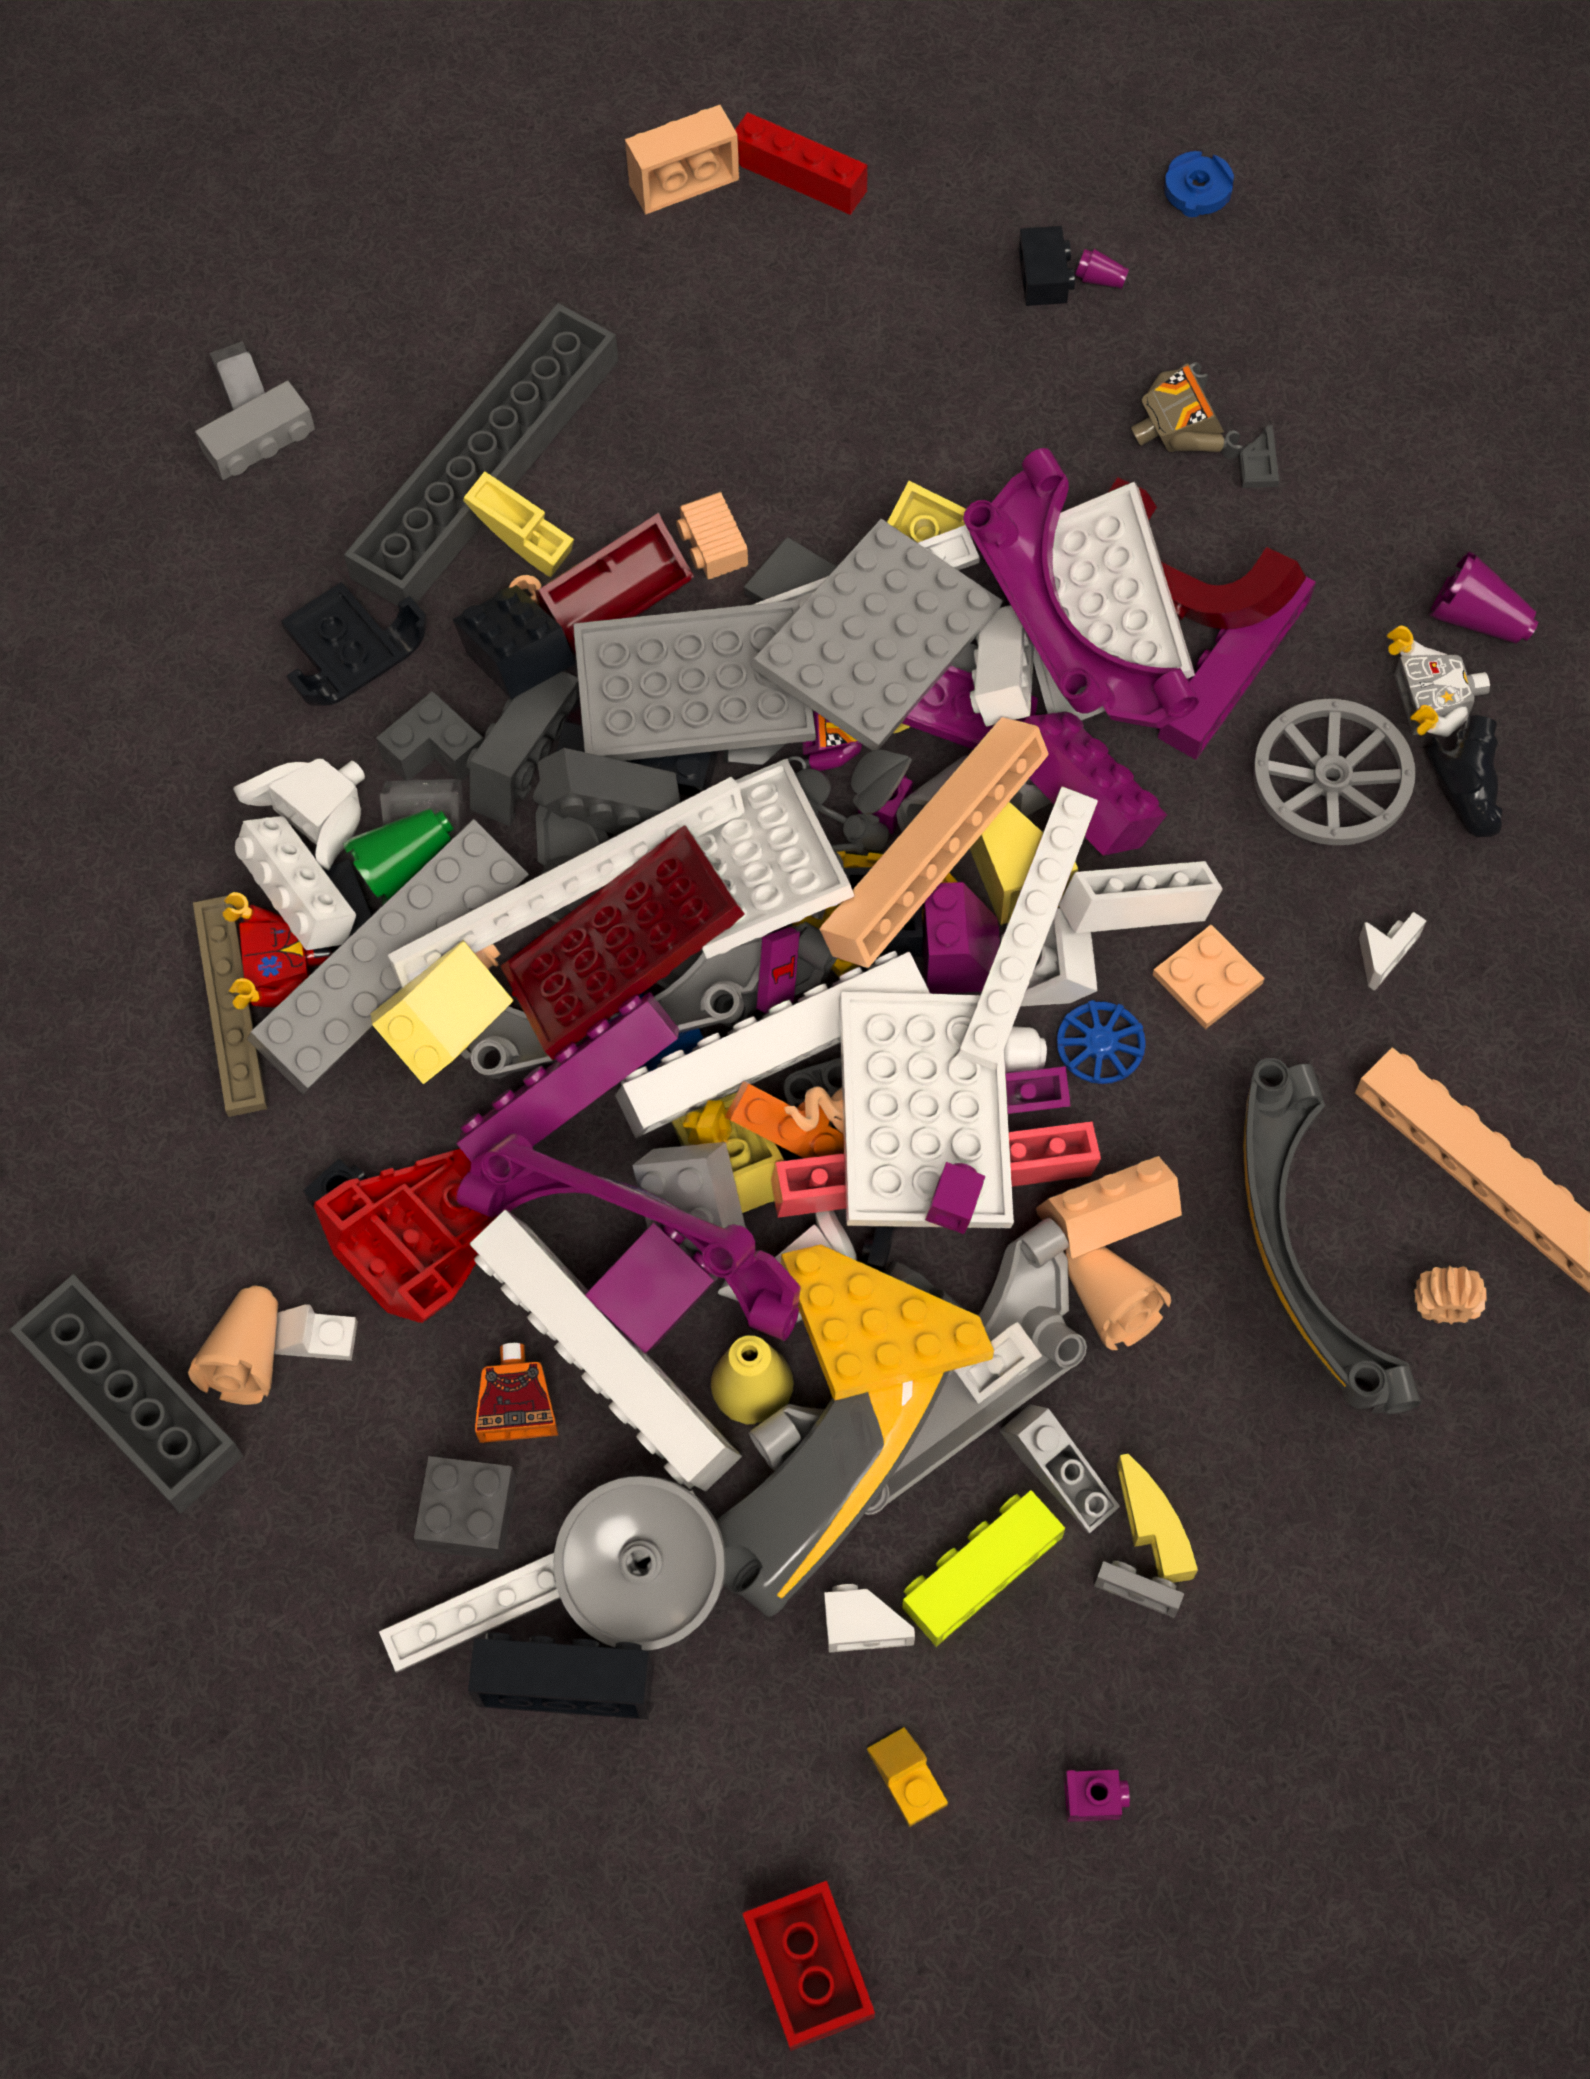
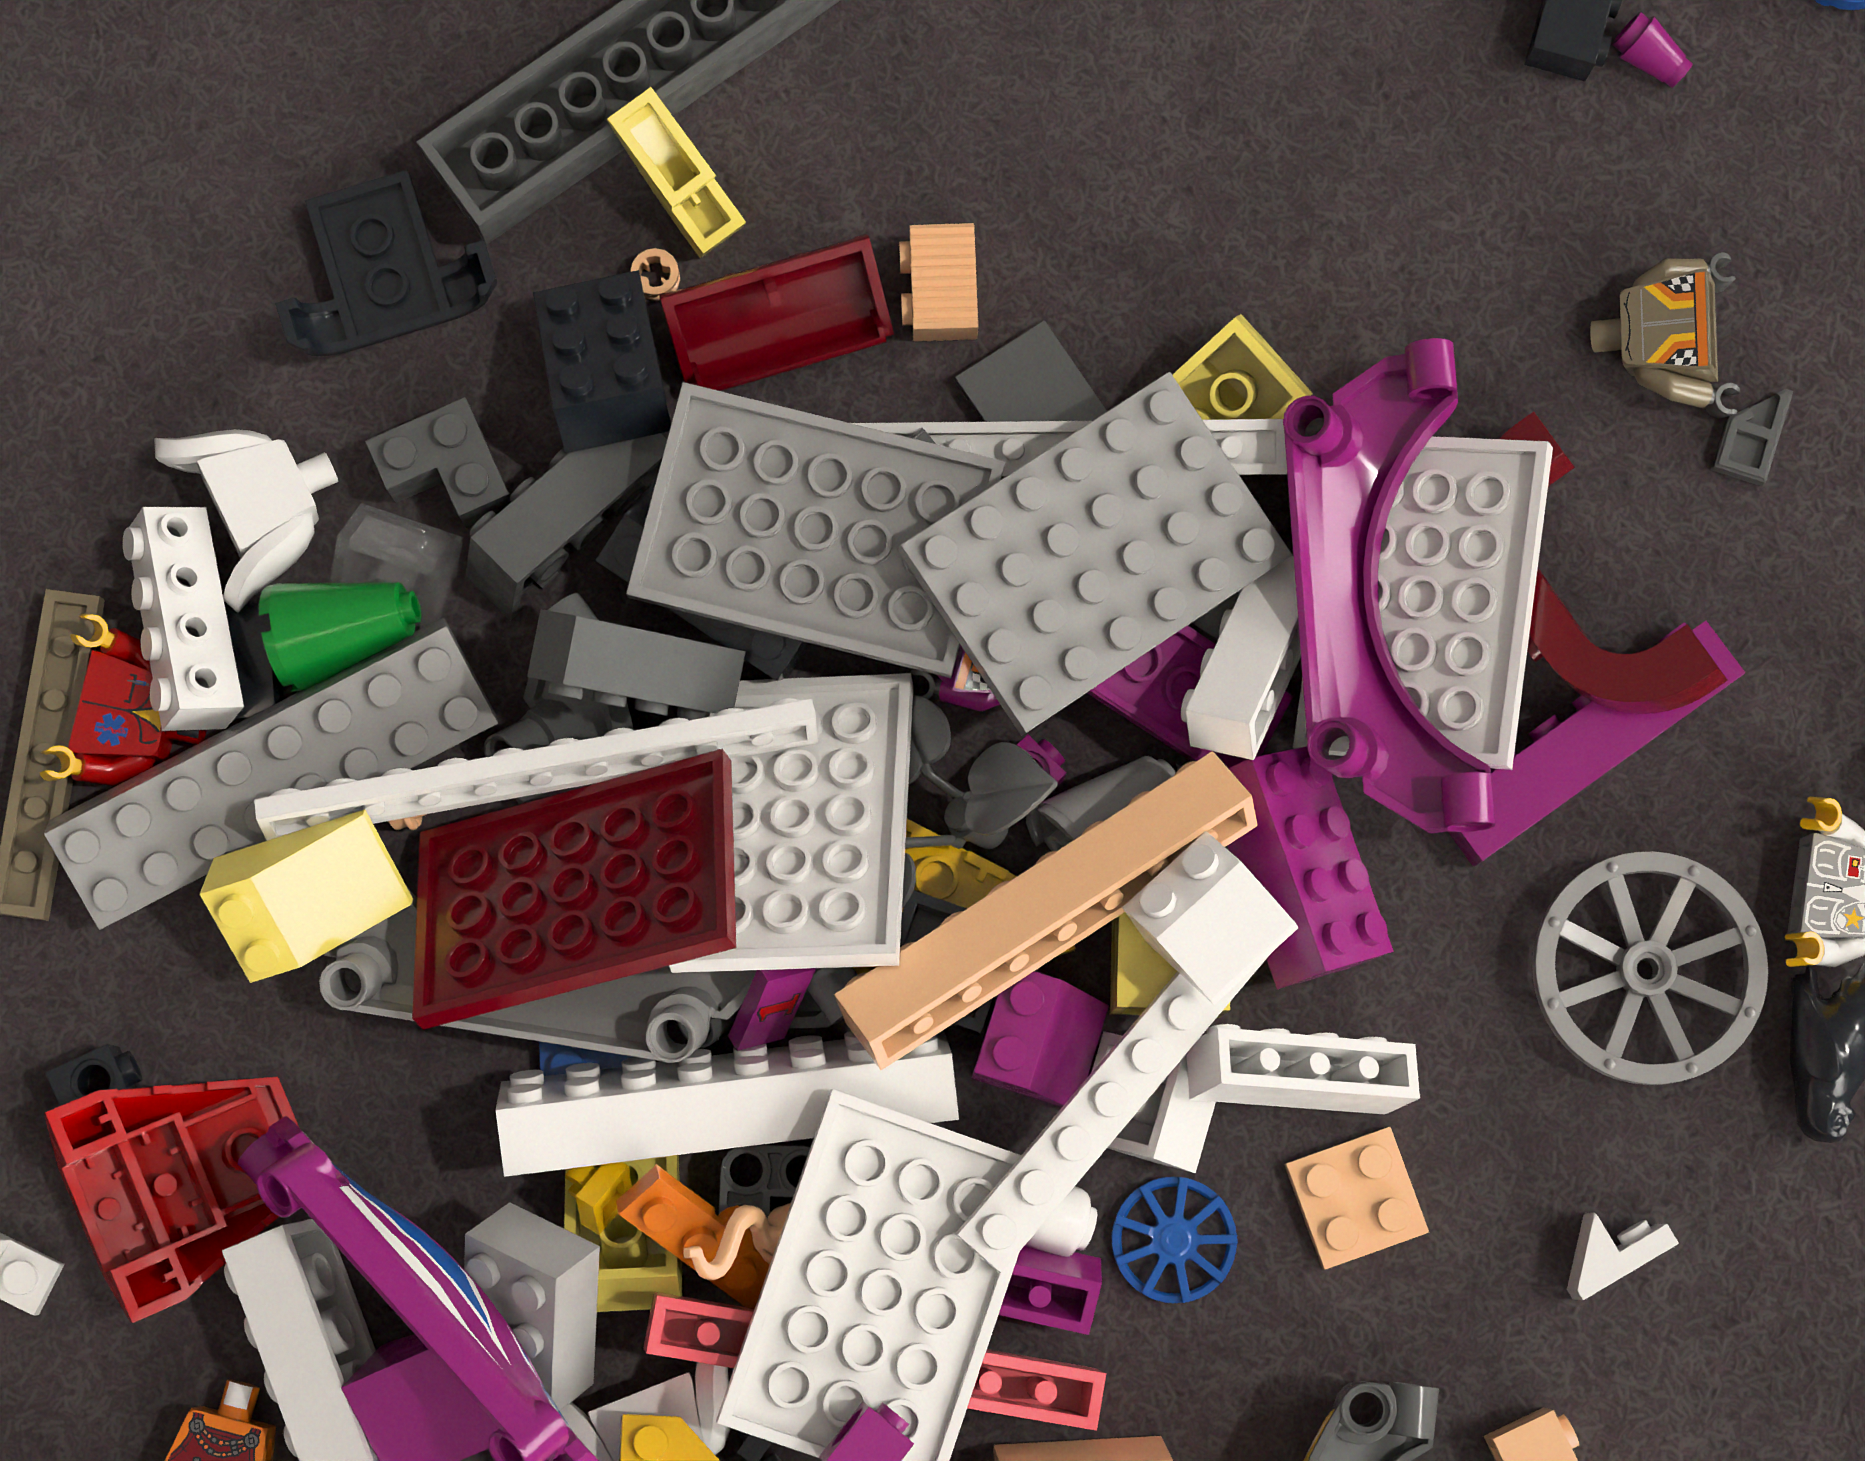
camera: 15 degrees right, 15 degrees up
(576, 1077) = (435, 1068): magenta brick -> none
(1041, 805) = (1209, 917): none -> white slope

